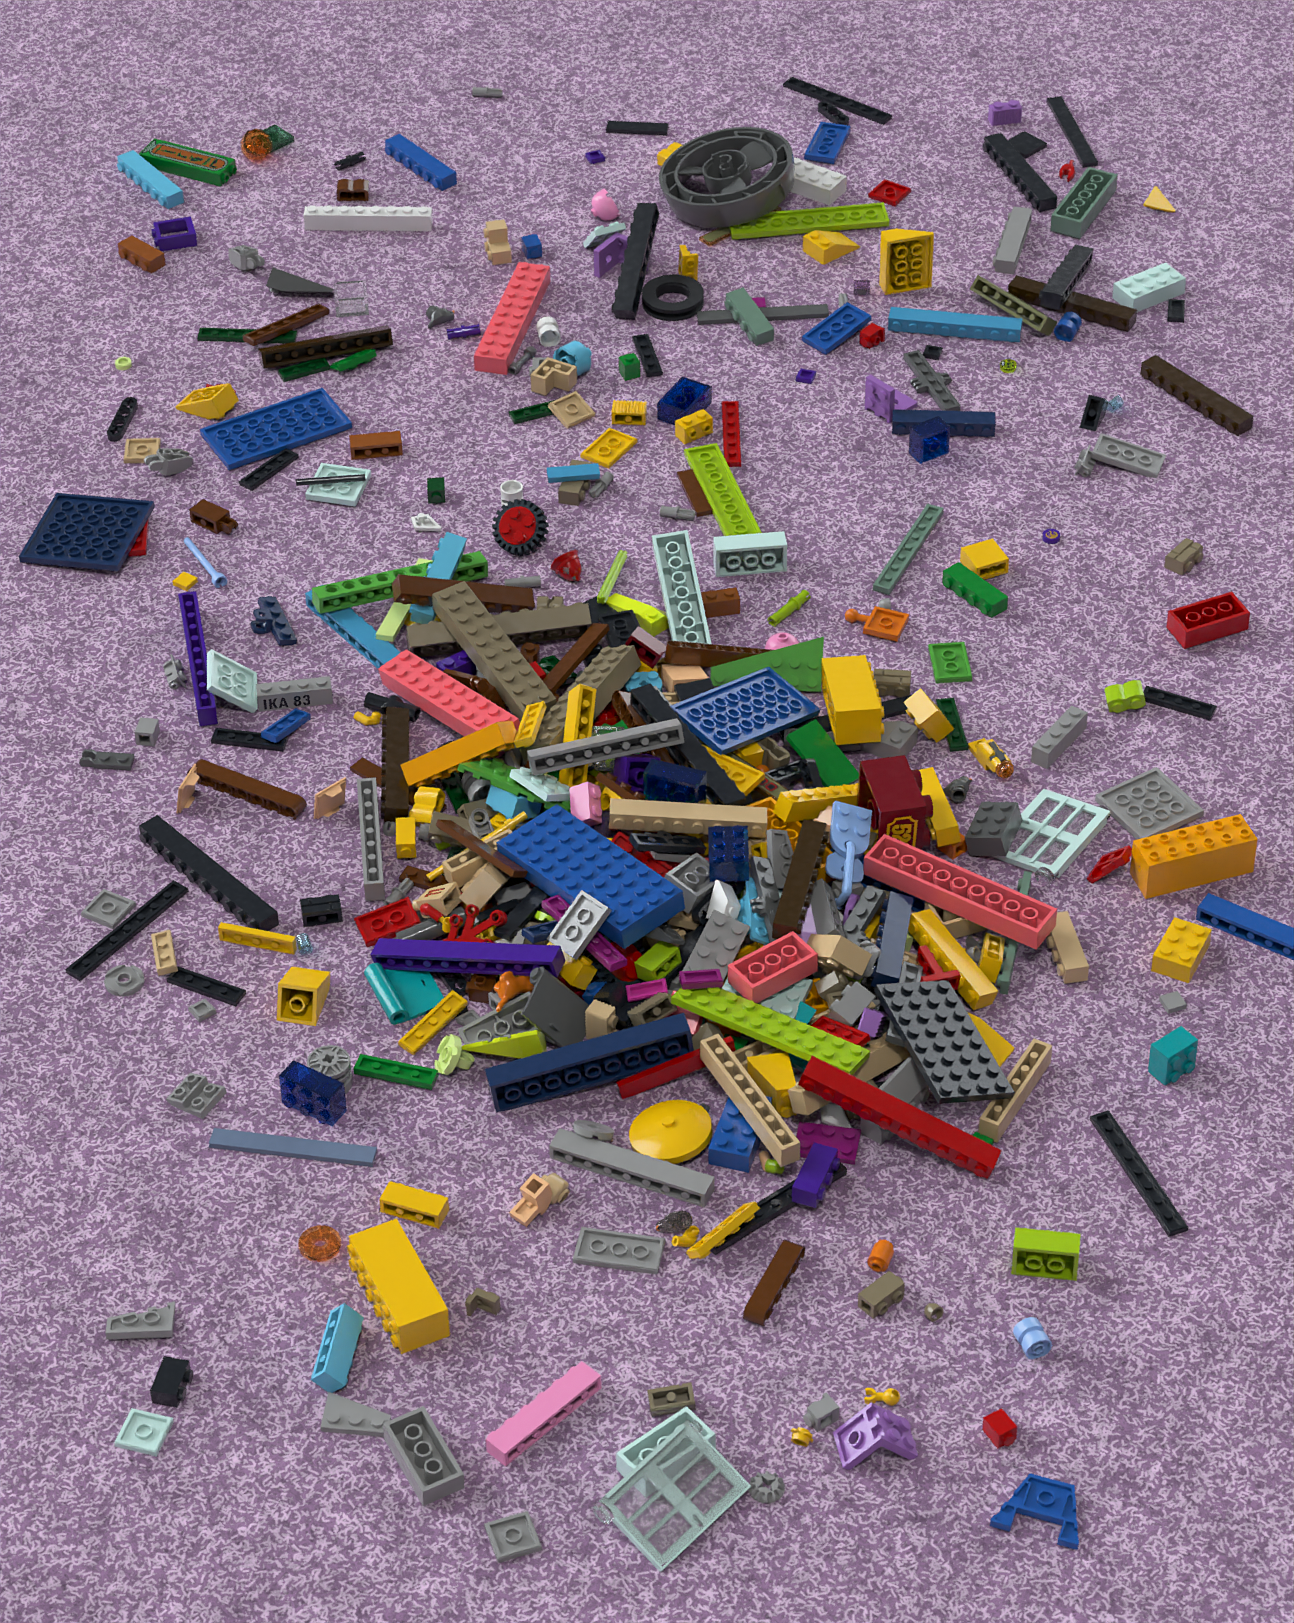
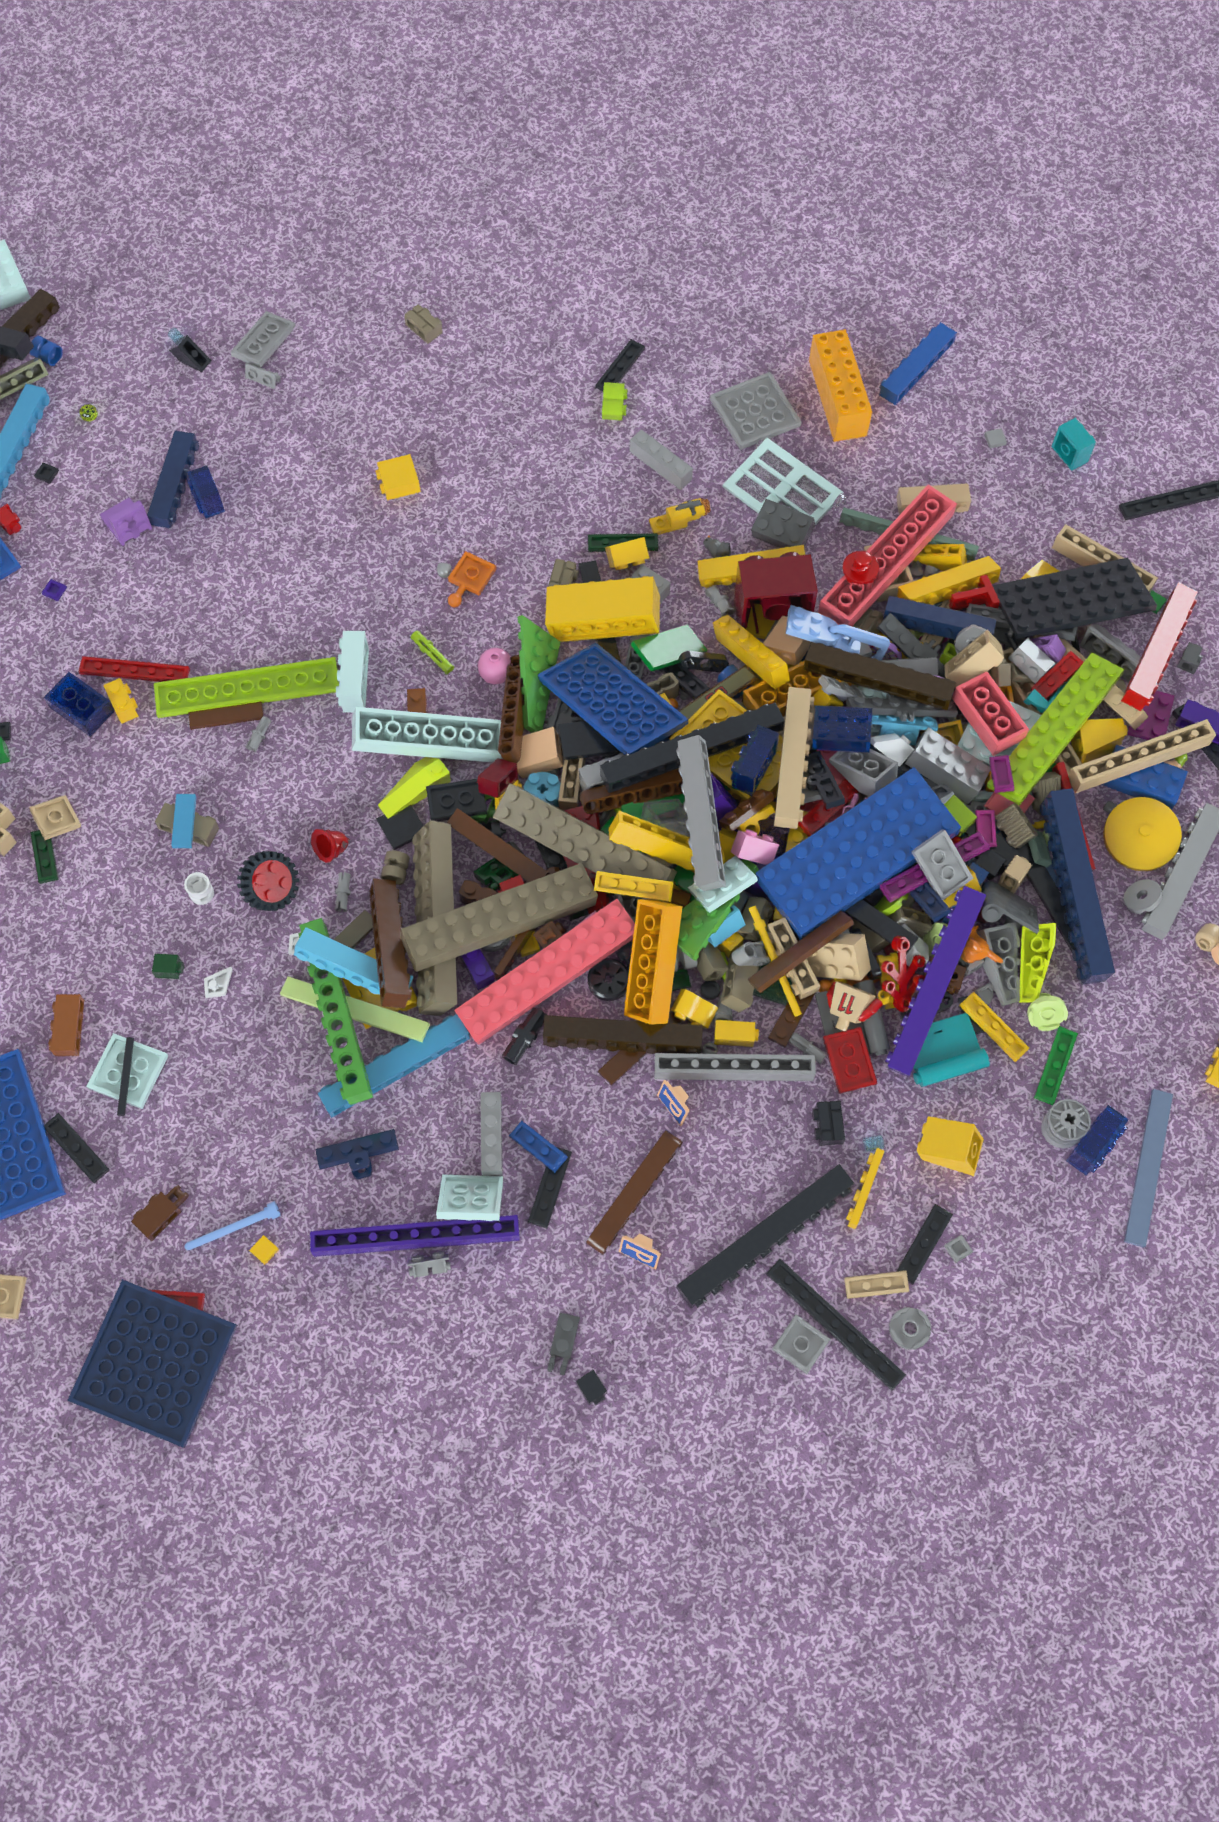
camera: 85 degrees left, 25 degrees up
(66, 777) = (591, 1388): none -> black brick
(147, 732) = (527, 1295): light grey brick -> none
(169, 461) = (41, 1261): light grey hinge -> none
(196, 1095) = (1078, 1257): light grey slope -> none
(368, 720) = (537, 1061): yellow arm -> none
(601, 484) = (201, 806): light grey axle -> none
(608, 448) = (128, 788): yellow tile -> none
(612, 576) = (353, 805): lime axle -> none
(629, 412) = (76, 760): yellow brick -> none
(907, 1171) = (1190, 658): none -> dark grey brick
(908, 549) = (362, 538): sand green plate -> none
(929, 856) = (860, 567): none -> red plate
(931, 381) = (98, 480): dark grey hinge -> none
(950, 662) = (534, 530): bright green tile -> none
(975, 590) = (438, 493): green brick -> none
(1051, 536) = (366, 421): dark purple tile -> none
(1109, 863) = (832, 449): red wing -> none
(1176, 310) = (39, 263): black tile -> none
(1181, 950) = (942, 418): yellow brick -> none
(1196, 395) = (183, 270): dark brown brick -> none
(1208, 620) = (521, 320): red brick -> none

